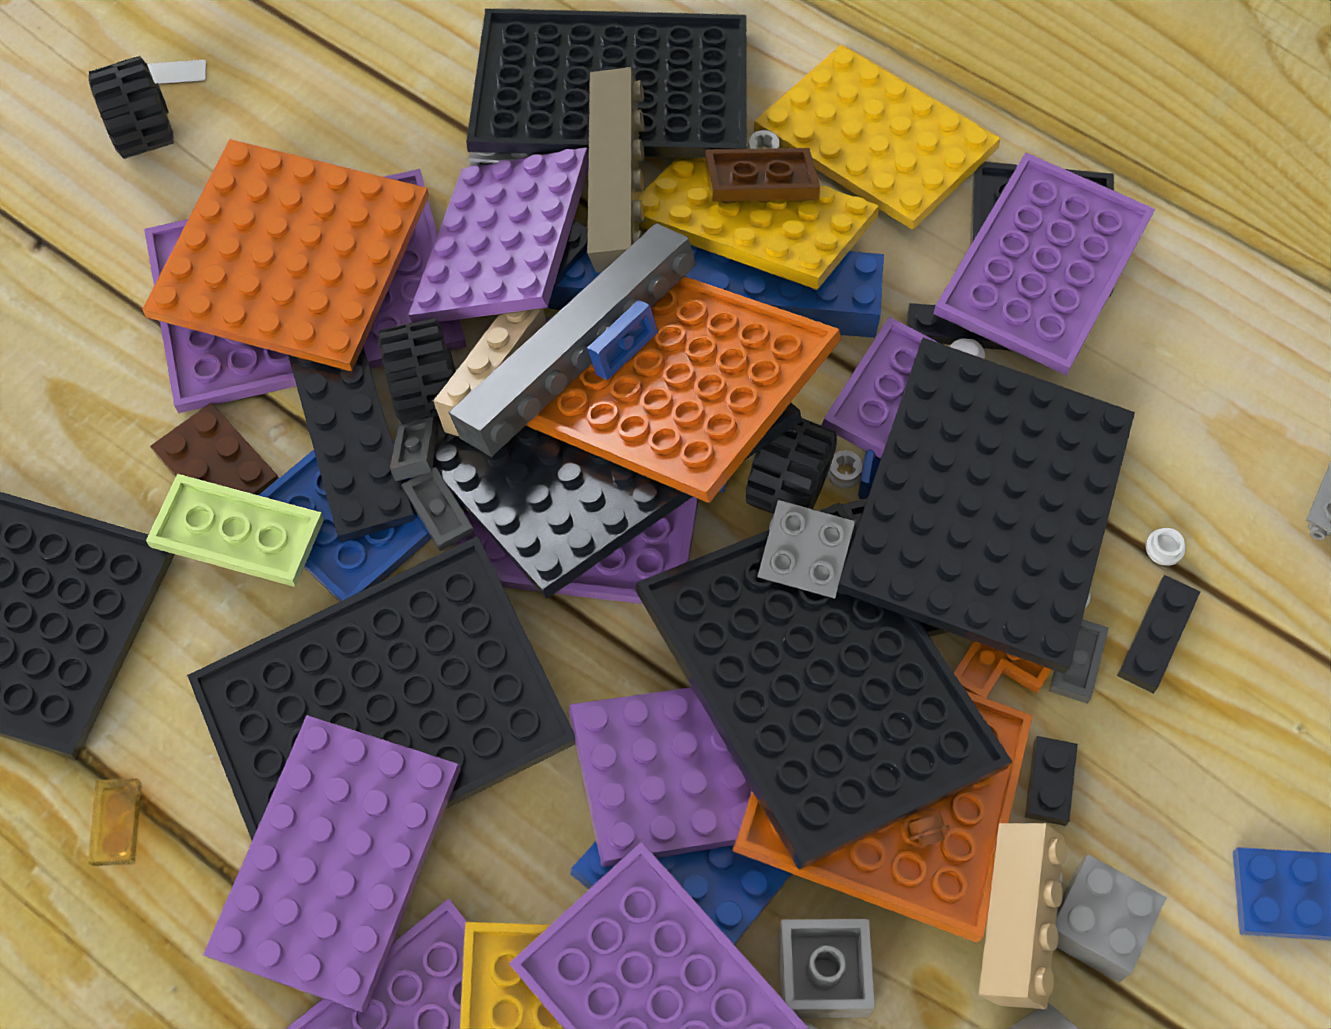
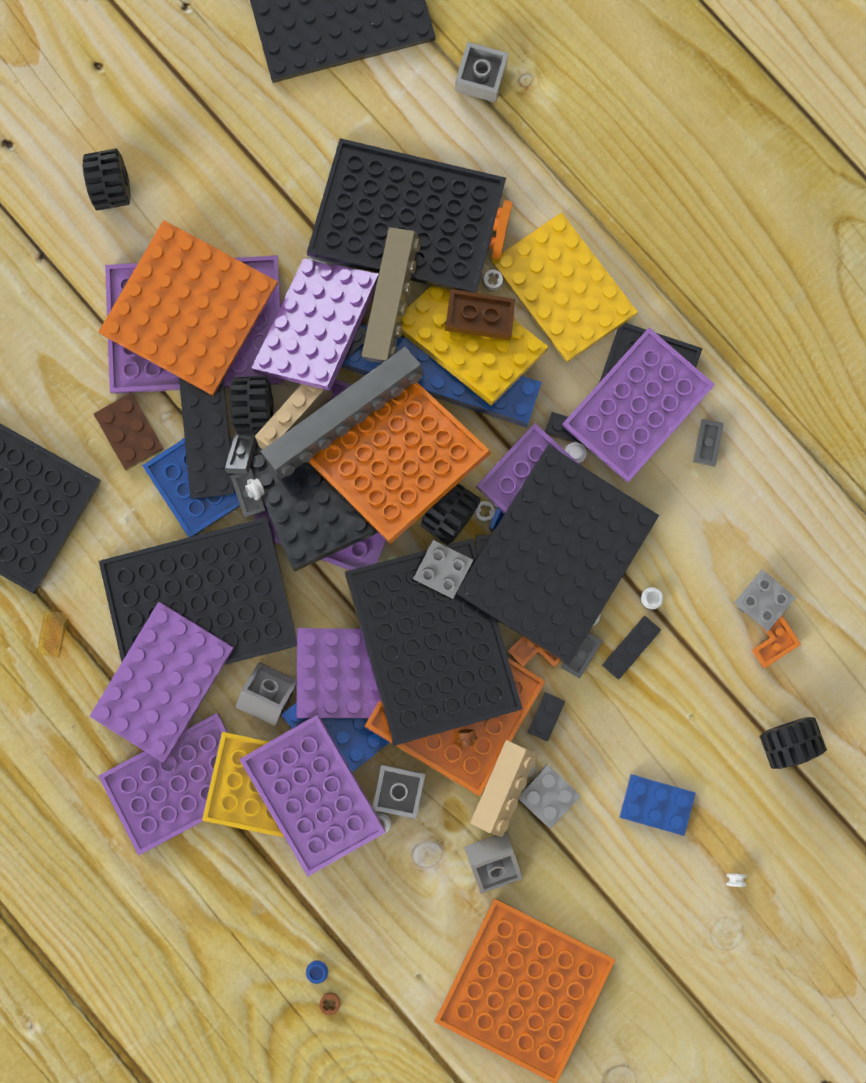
camera: 15 degrees right, 20 degrees up
(178, 71) = (133, 142): white sticker -> none
(235, 530) = (134, 482): yellowish green plate -> none
(448, 491) = (254, 489): none -> white plate
(534, 846) = (266, 694): none -> light grey slope
(622, 339) = (368, 423): blue plate -> none
(759, 64) = (500, 225): none -> orange plate
(1170, 301) = (708, 442): none -> dark grey plate

